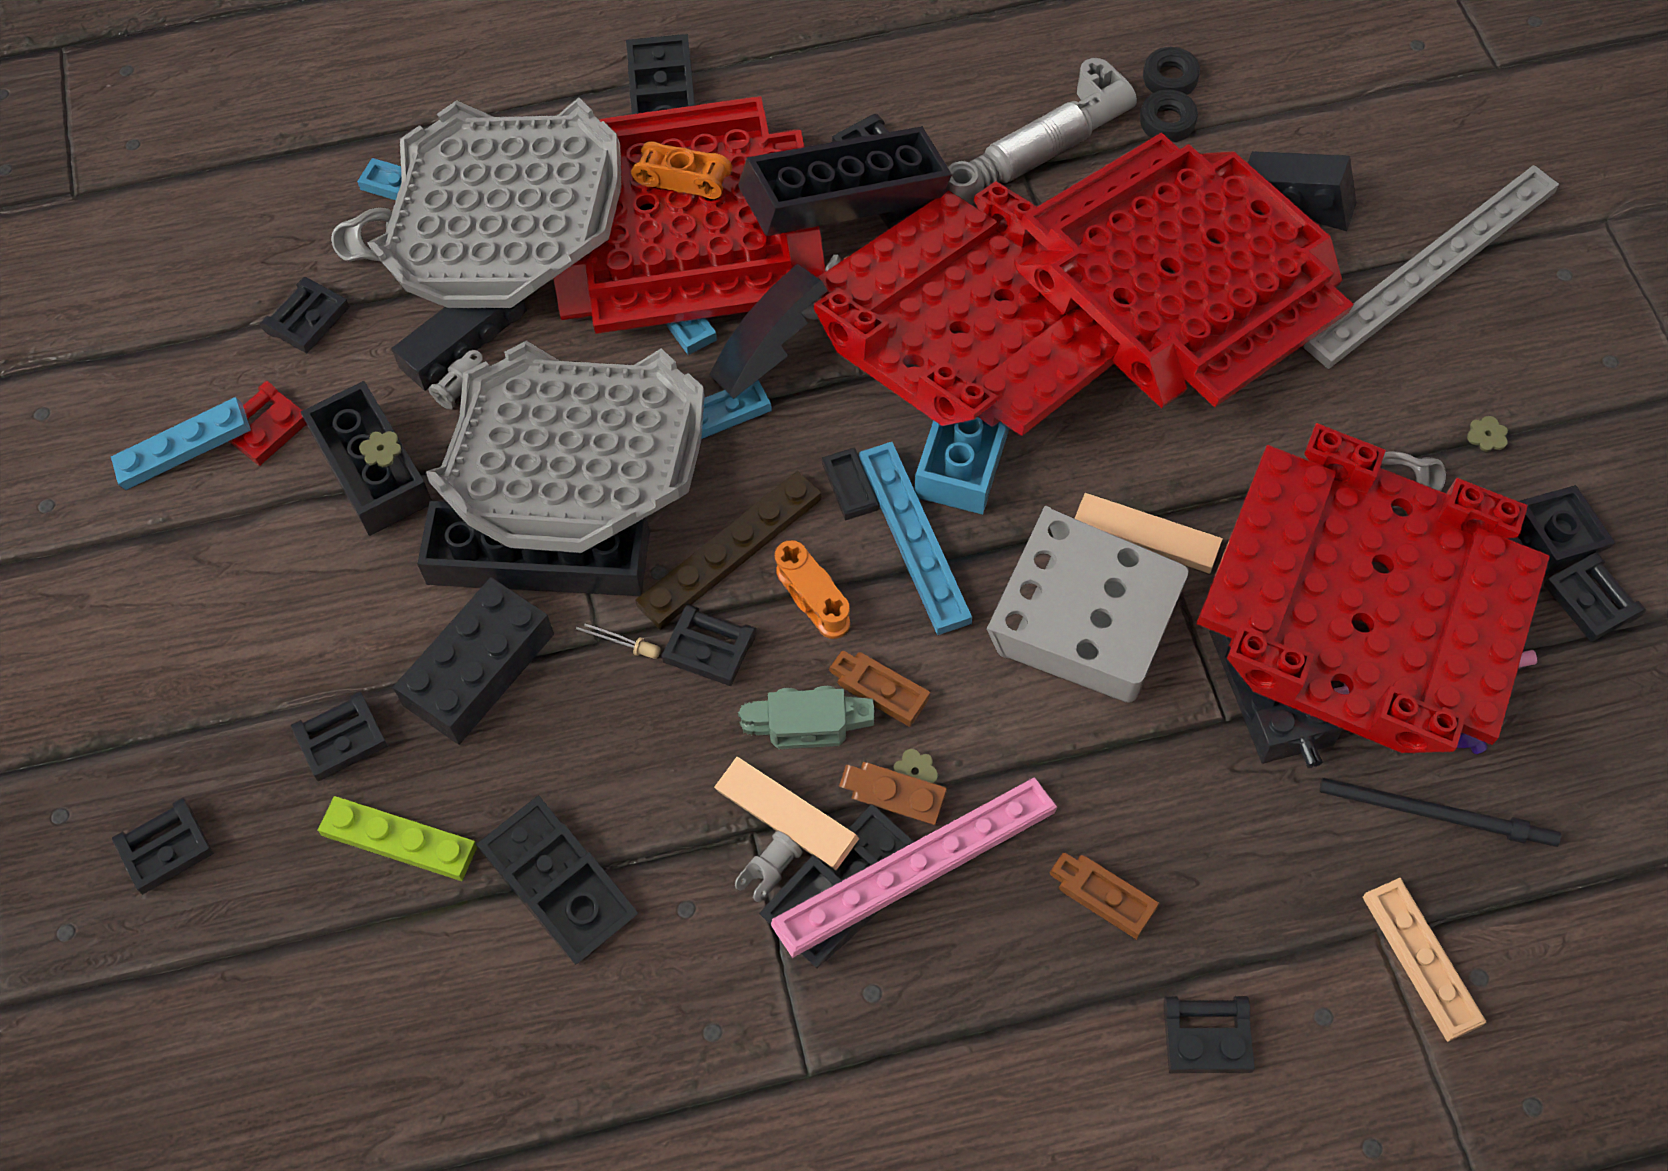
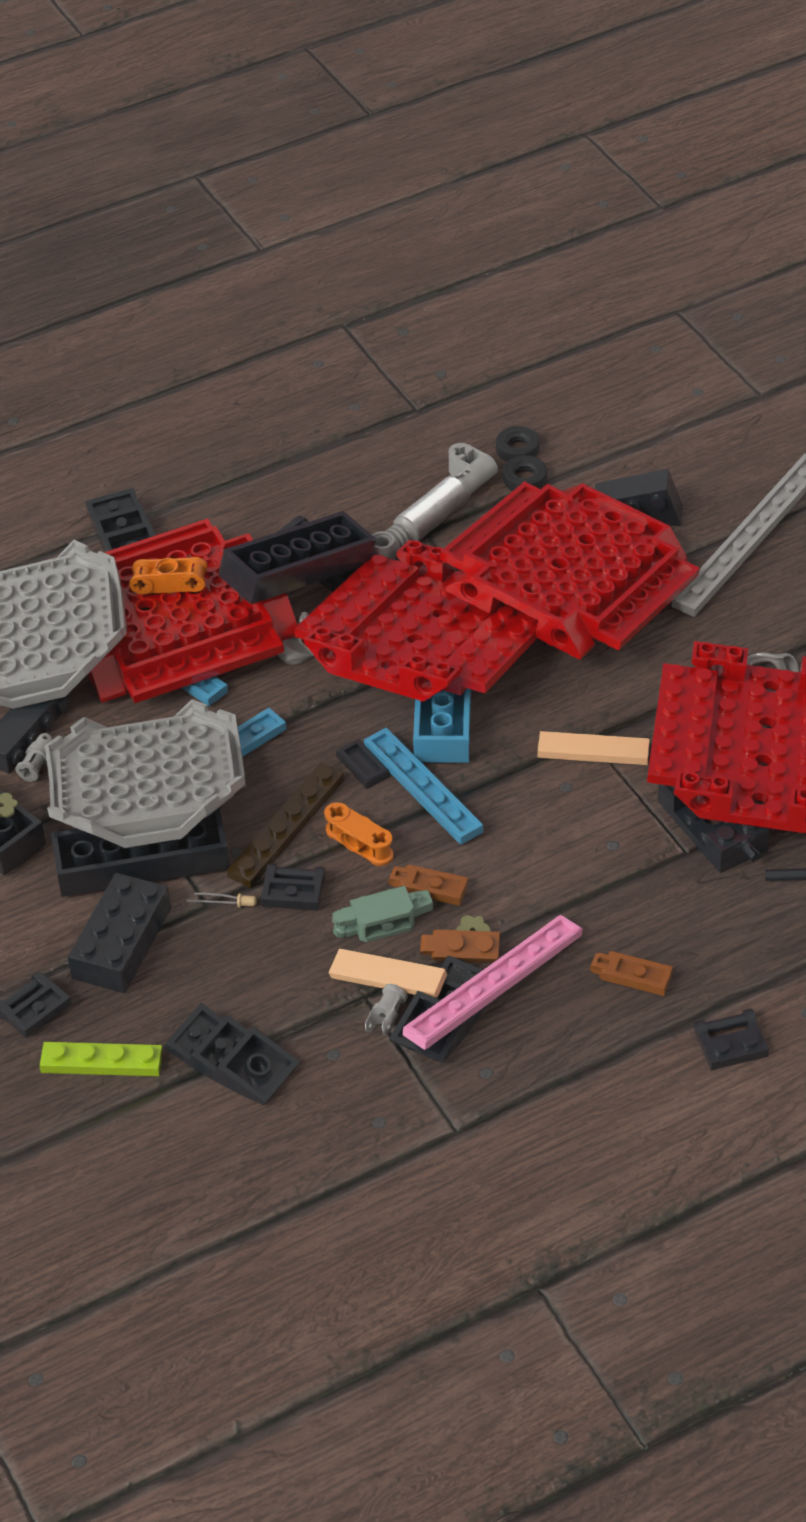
camera: 15 degrees left, 15 degrees down
(758, 338) = (267, 671): black slope -> none
(1093, 609) = (570, 799): light grey piece -> none

